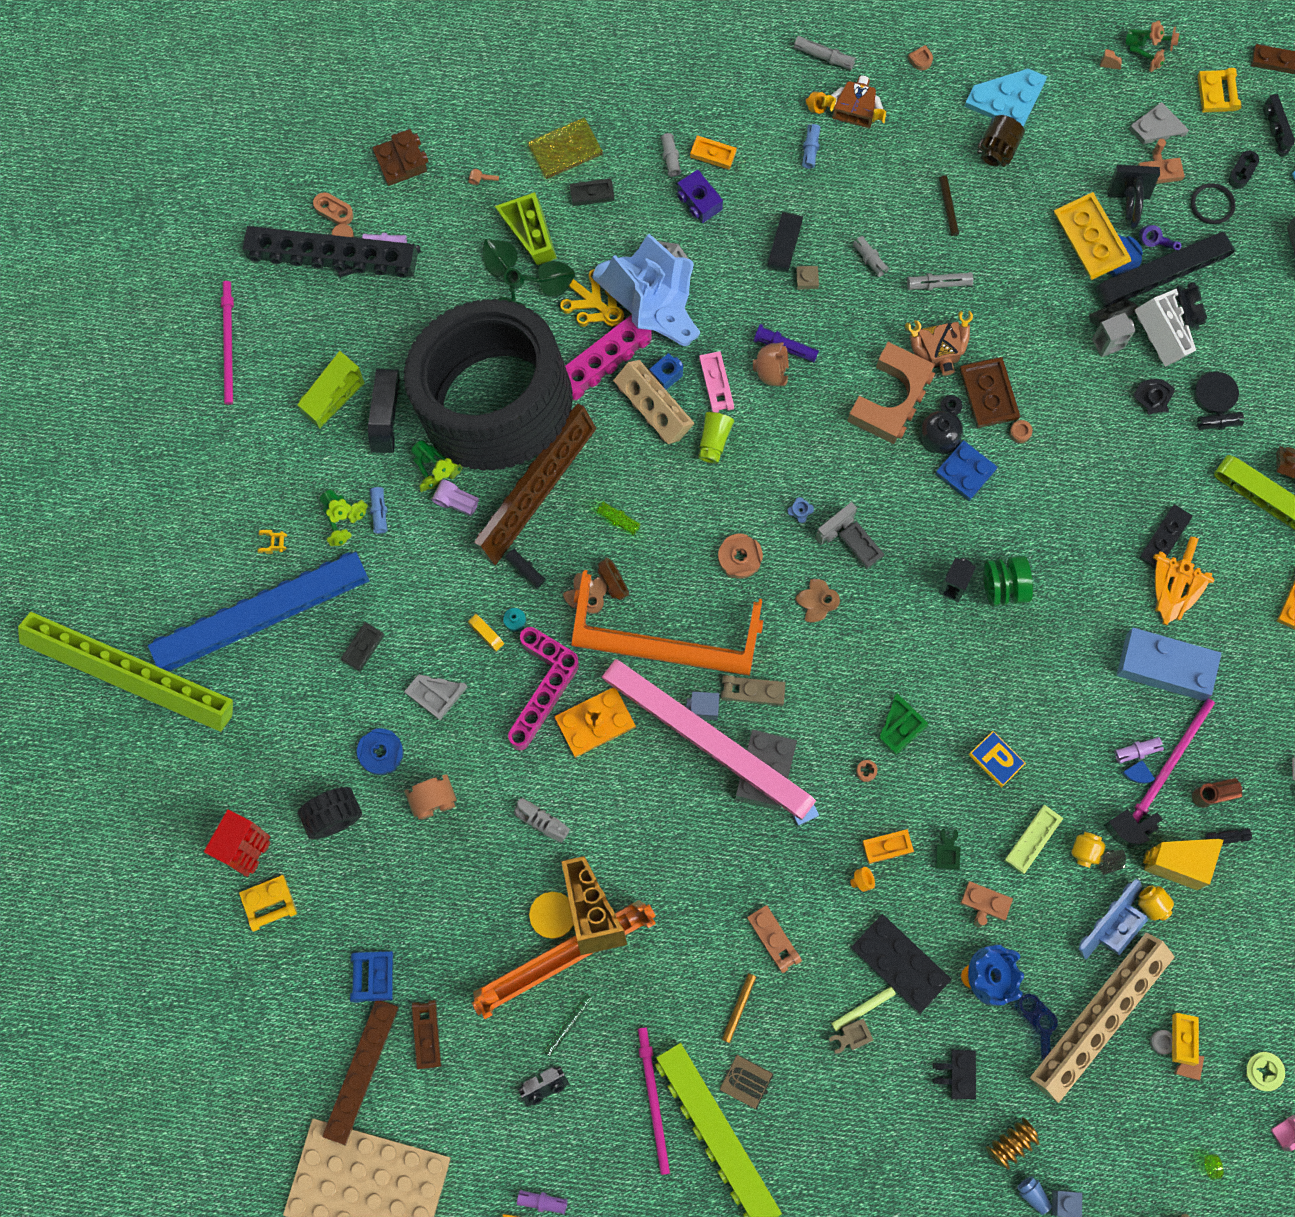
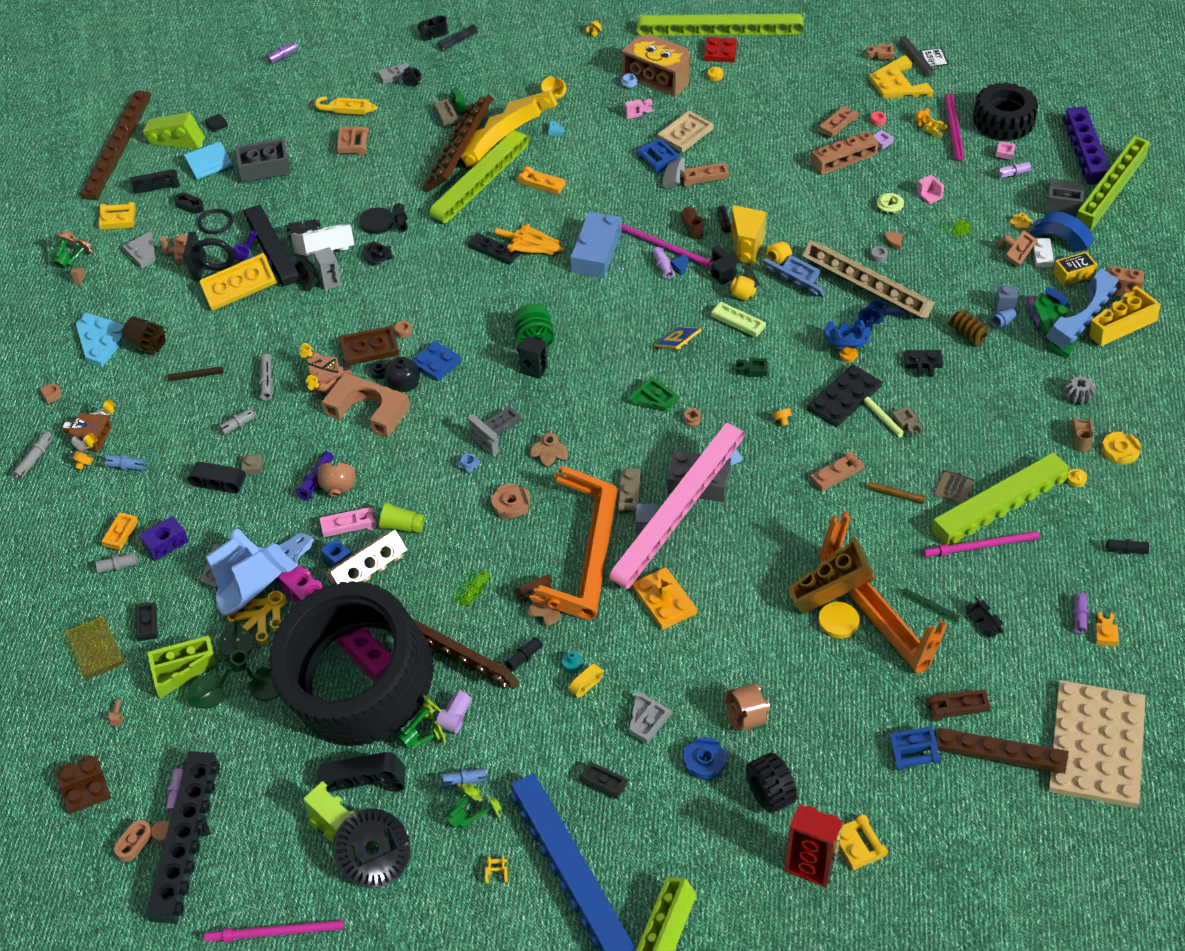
camera: 90 degrees left, 25 degrees down
(278, 427) = (374, 869): none -> black piece
(541, 820) = (757, 630): light grey hinge -> none
(545, 688) = (617, 618): dark pink beam -> none
(887, 846) = (753, 402): light orange plate -> none
(986, 903) = (791, 346): nougat plate -> none
(1185, 1039) = (874, 239): yellow plate -> none

